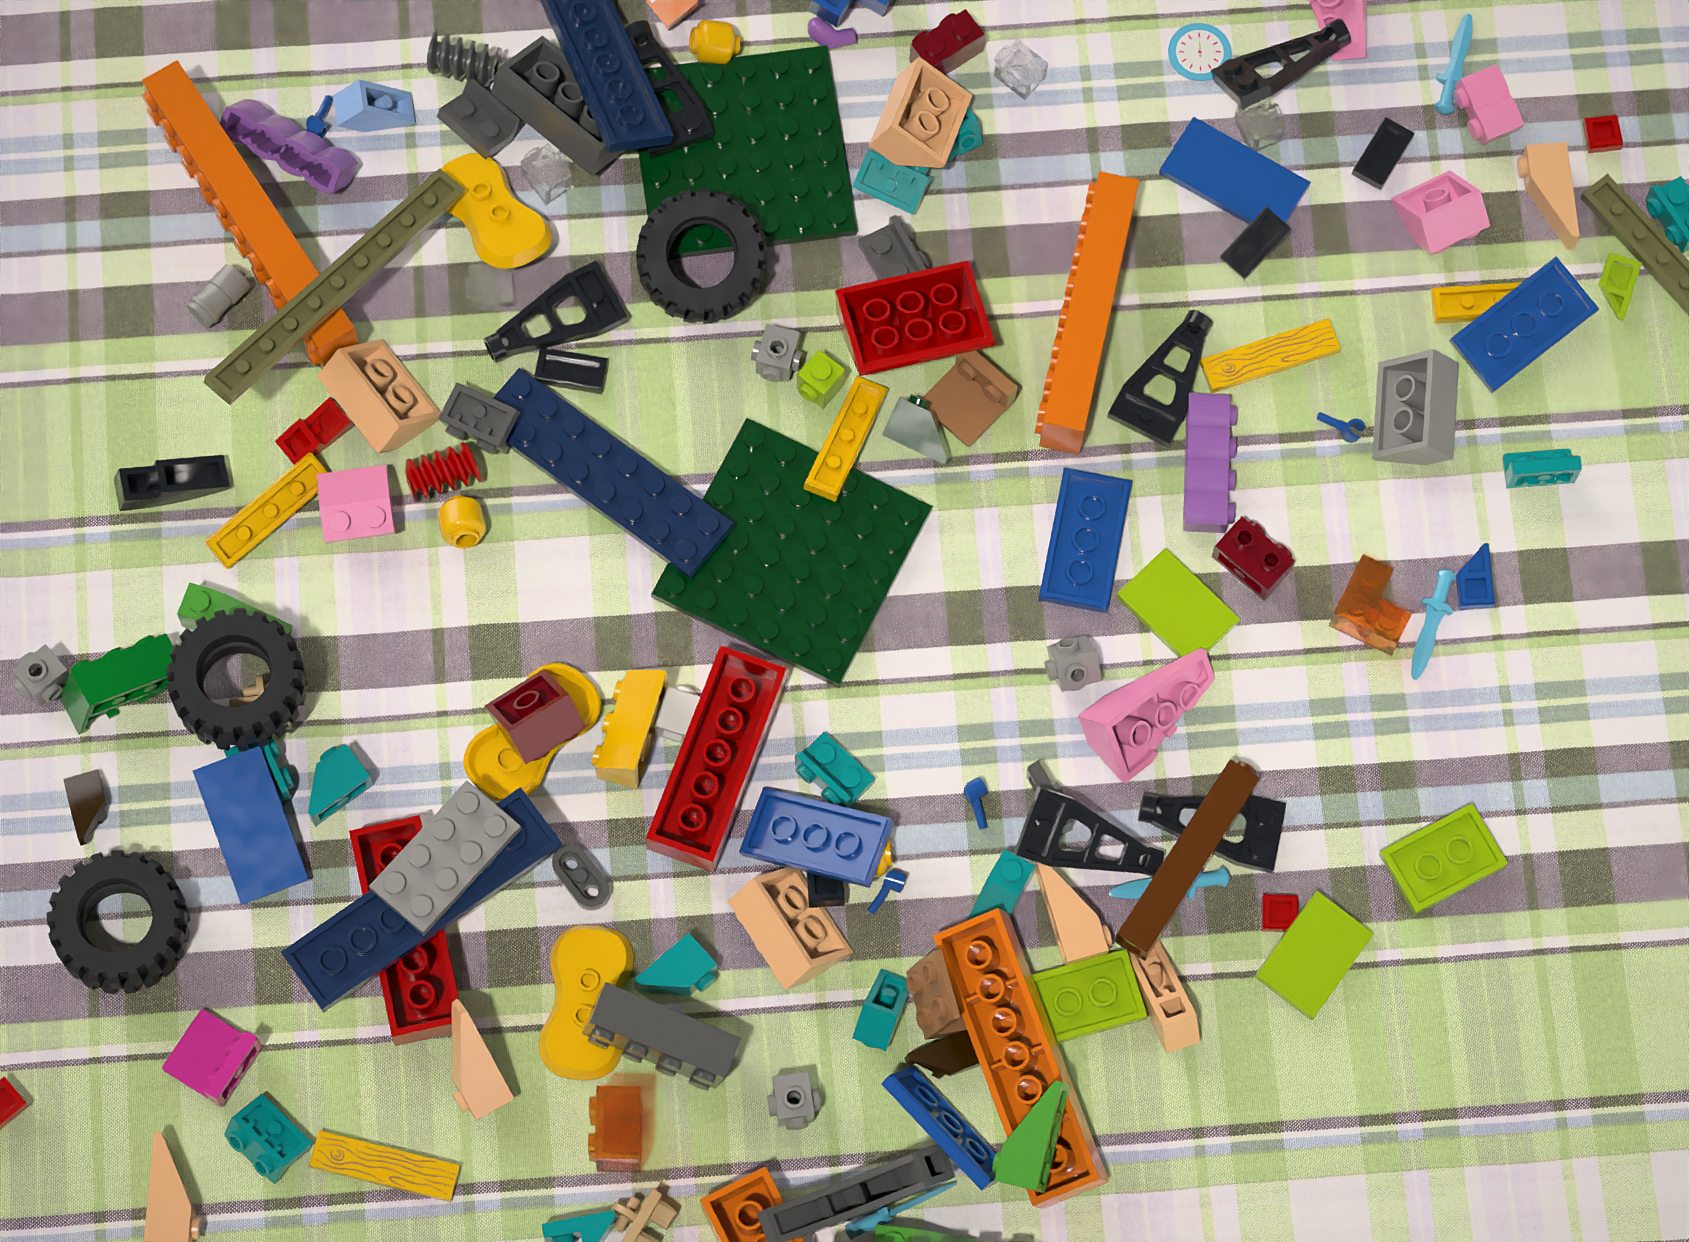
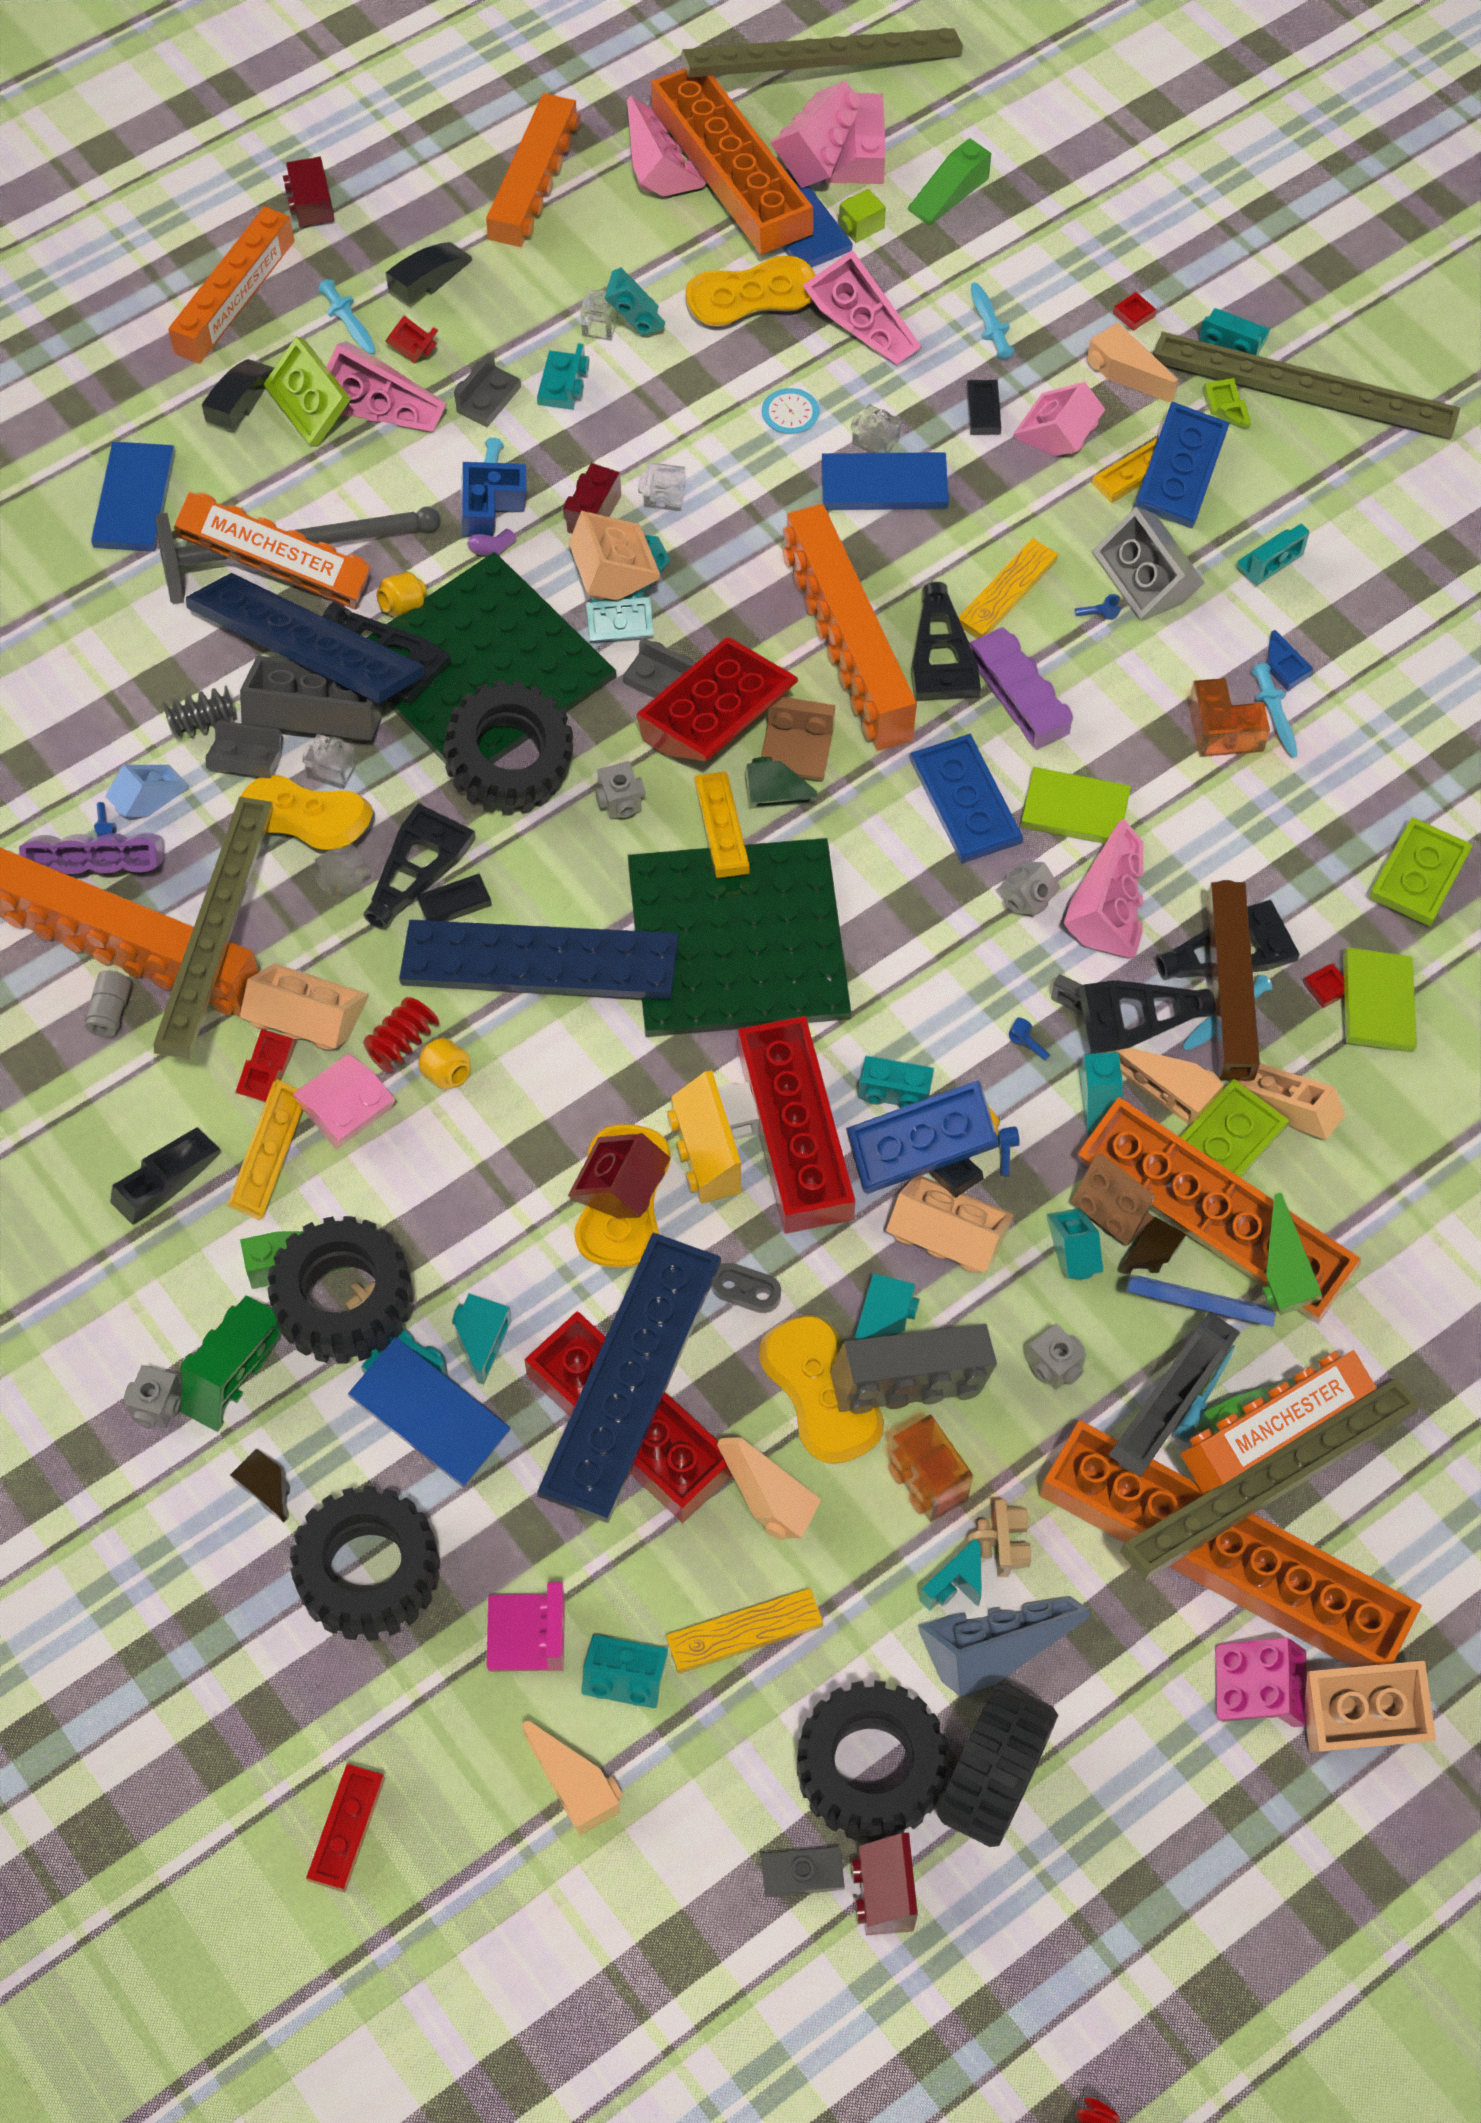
camera: 30 degrees left, 10 degrees down
(445, 857) = (629, 1326): light grey plate -> none
(478, 418) = (404, 974): dark grey bracket -> none
(820, 379) = (668, 791): lime brick -> none
(1247, 87) = (851, 407): black plate -> none
(1253, 557) = (1108, 736): dark red brick -> none
(1255, 243) = (937, 515): black tile -> none
(1488, 105) = (1039, 330): bright pink brick -> none

